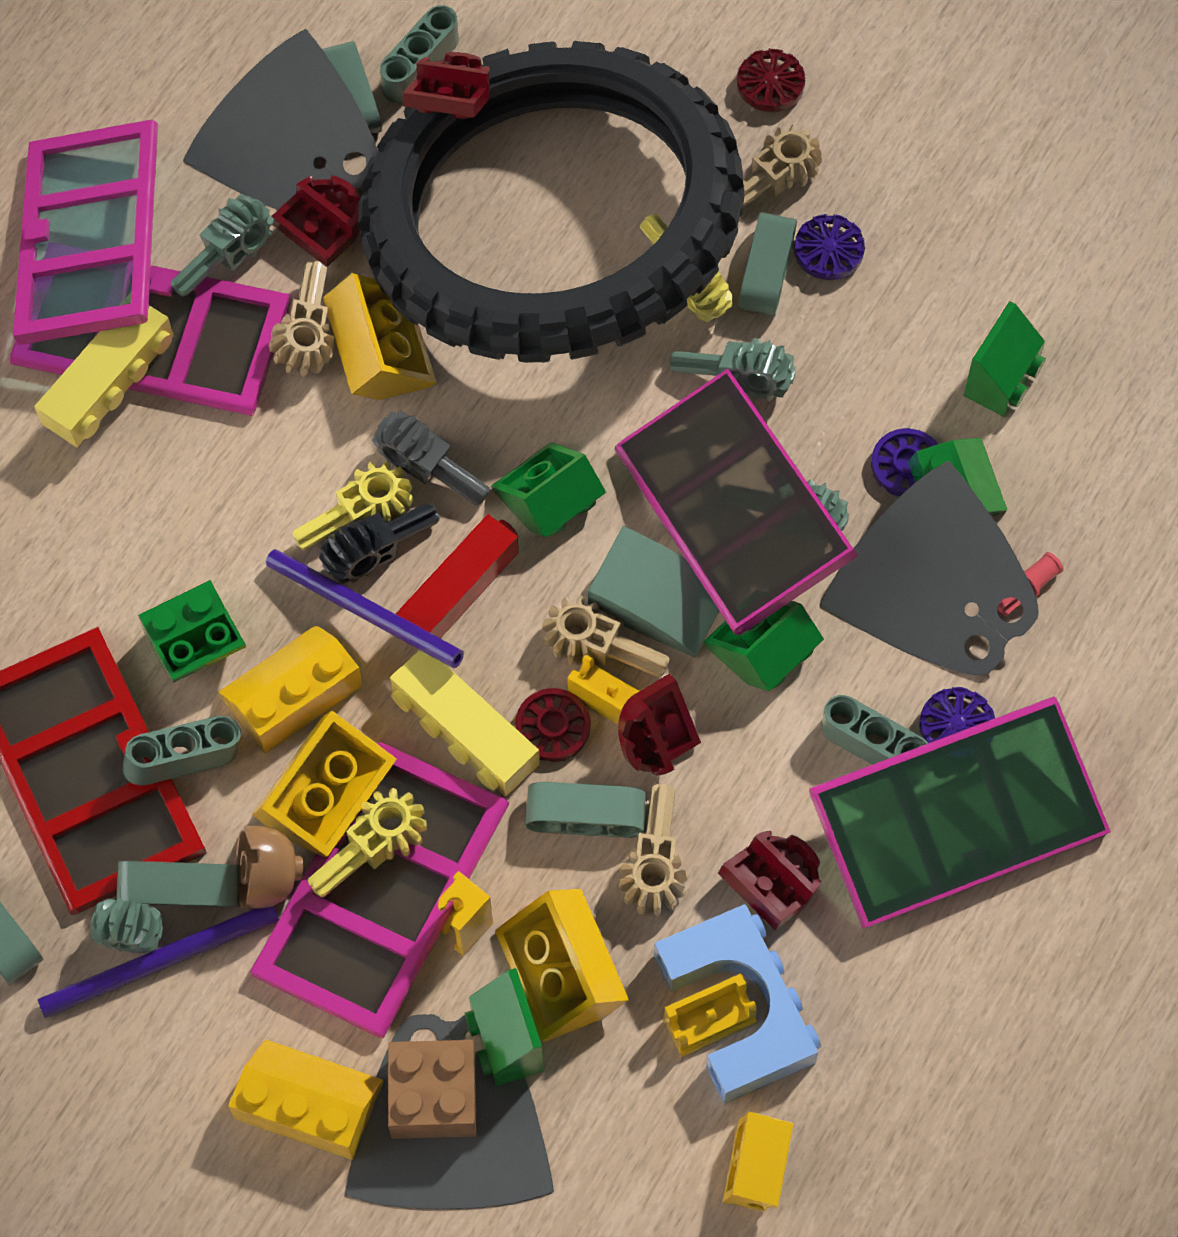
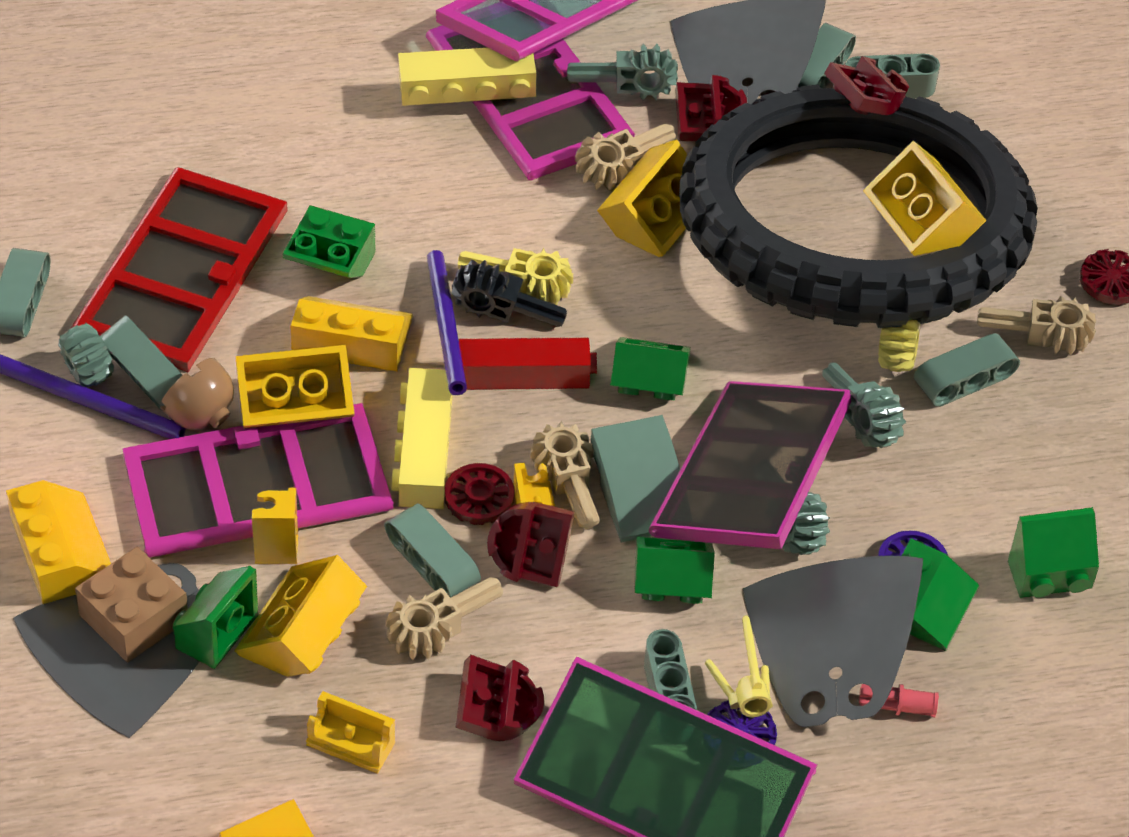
camera: 45 degrees right, 15 degrees down
(169, 764) = (255, 303): sand green beam -> none
(371, 841) = (284, 441): light yellow gear -> none
(423, 454) = (596, 280): dark grey gear -> none
(634, 160) = (923, 203): none -> yellow slope
(736, 945) = (375, 789): light blue arch -> none
(829, 247) = (1025, 398): dark purple wheel -> none
(940, 685) = (752, 691): none -> light yellow plant

